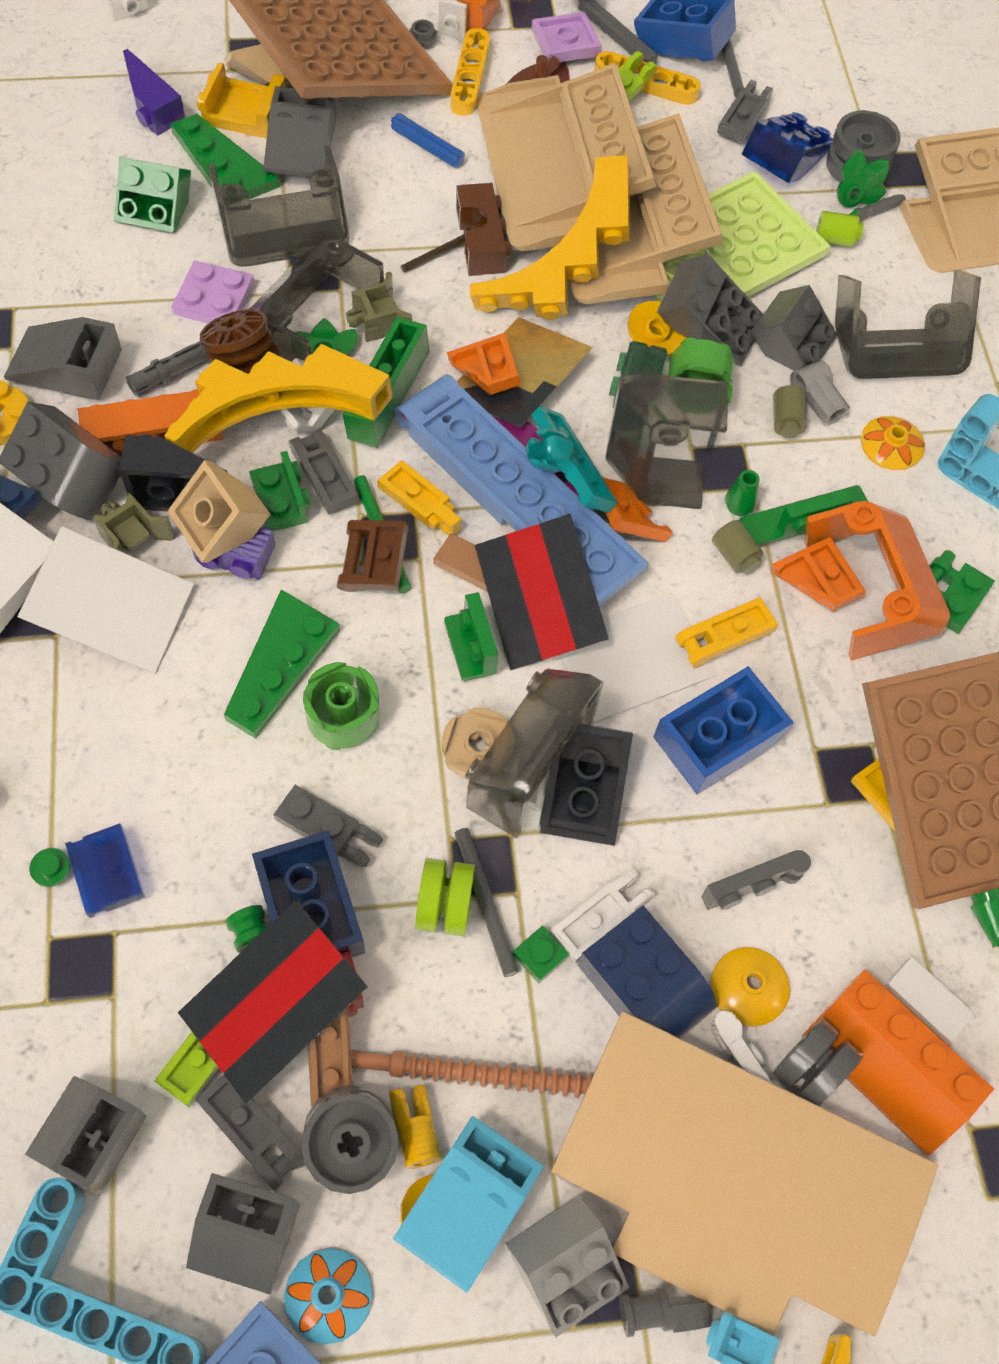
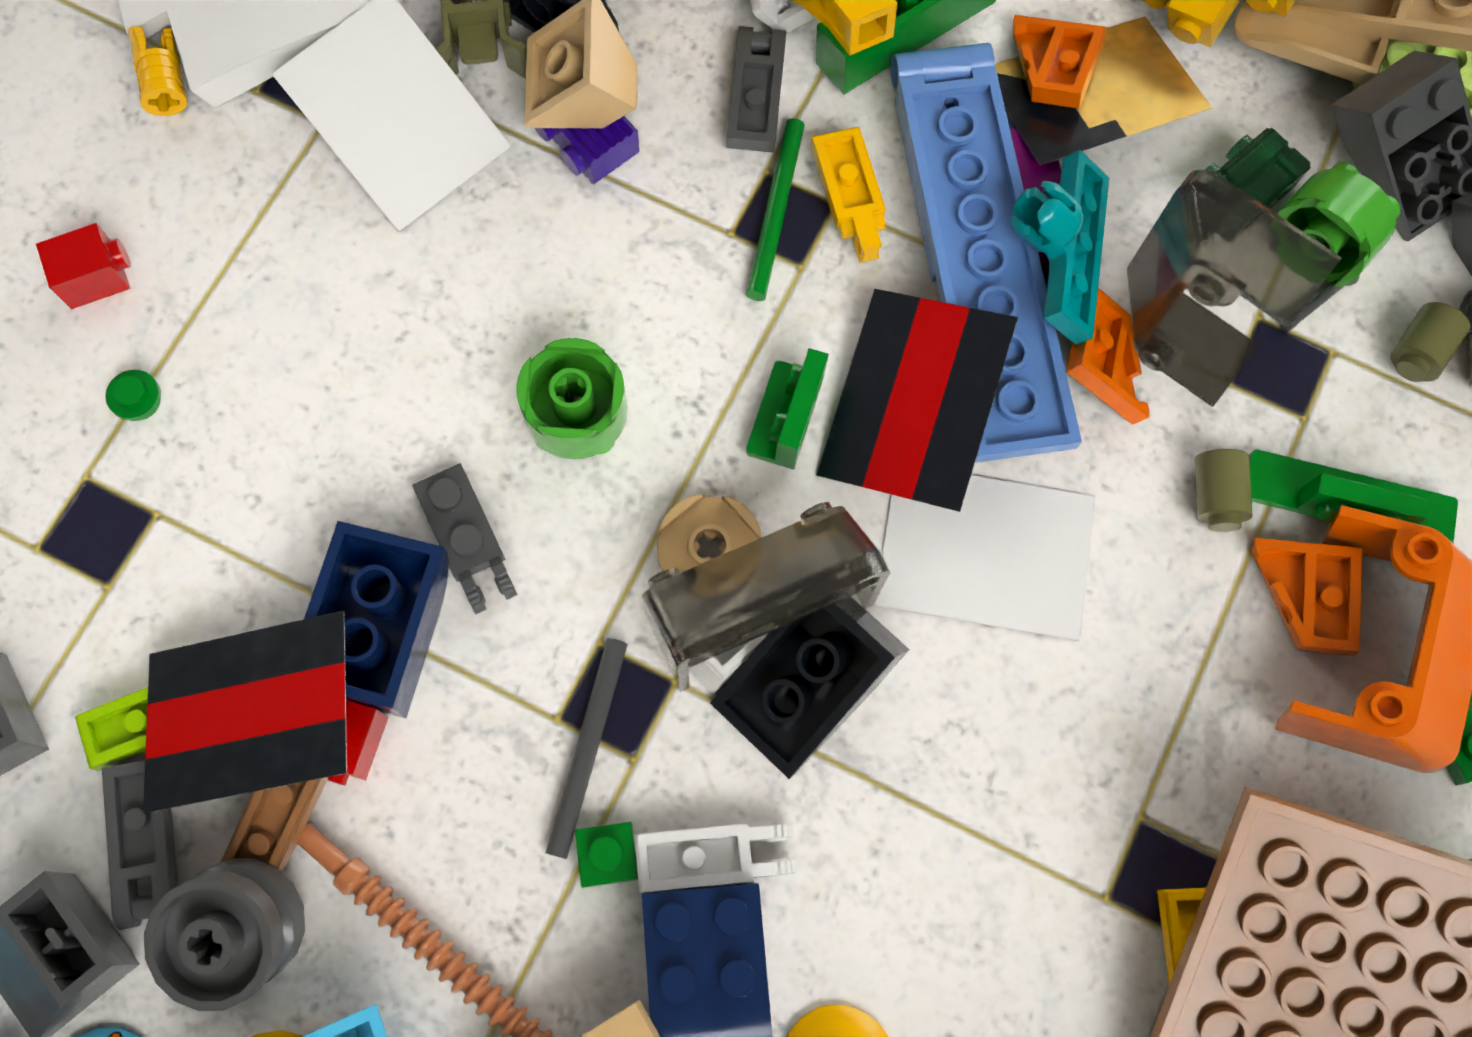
camera: 35 degrees right, 10 degrees up
(105, 870) = (186, 435): clear blue plate -> none
(246, 925) = (288, 601): green wheel -> none
(281, 494) = (684, 90): green bracket -> none
(281, 658) = (551, 297): green wing -> none
(382, 557) = (749, 239): reddish brown plate -> none
(417, 1133) = (314, 976): yellow hinge -> none
(444, 897) = (530, 714): lime wheel -> none
(461, 560) = (847, 295): medium nougat tile -> none
(645, 321) = (1311, 109): yellow dish -> none
(722, 729) = (1028, 719): blue brick -> none
(727, 631) = (1129, 592): yellow plate -> none
(743, 494) = (1281, 421): green cone -> none
(757, 879) = (939, 943): dark grey plate -> none

